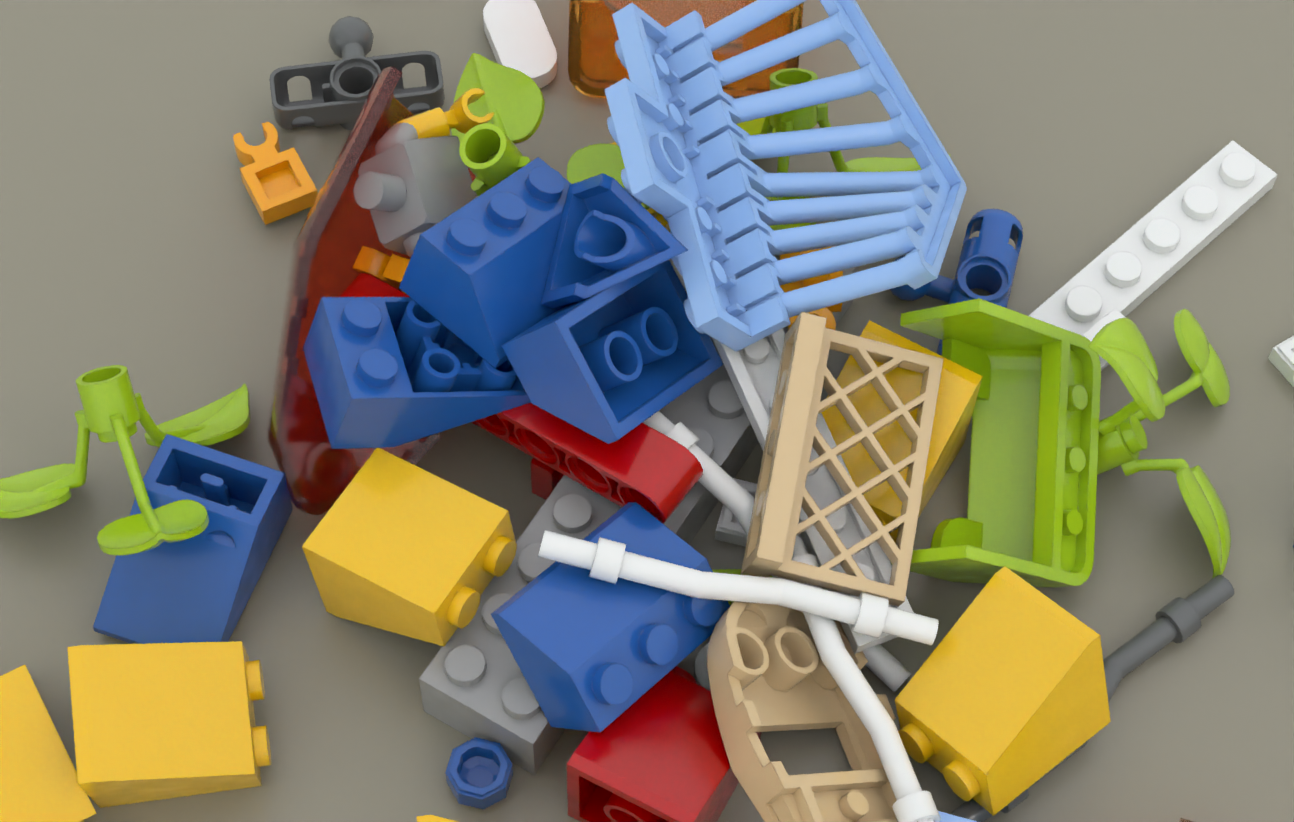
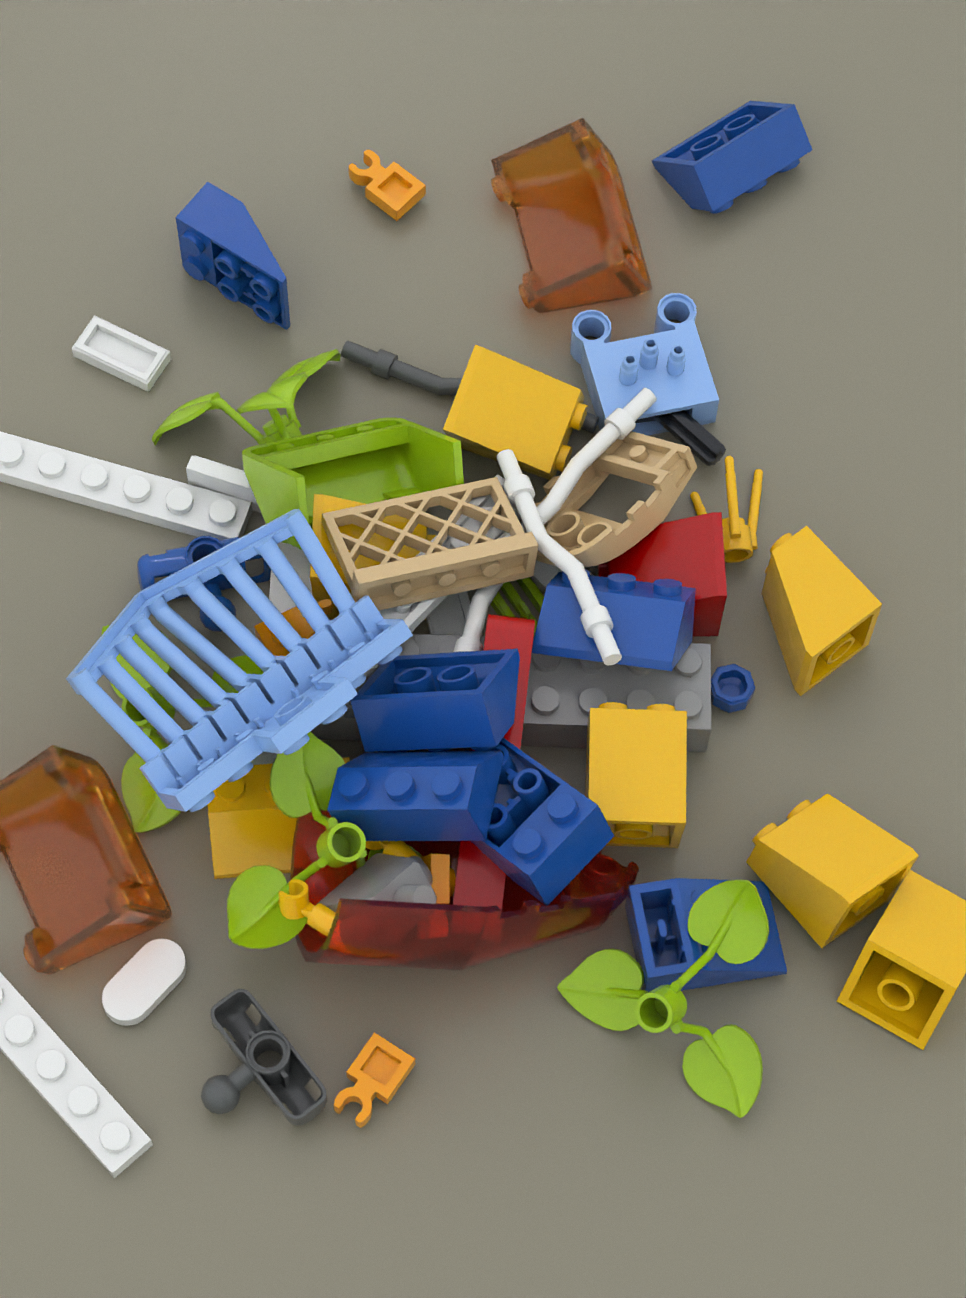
camera: 120 degrees left, 5 degrees up
(603, 242) = (387, 720): blue slope -> none

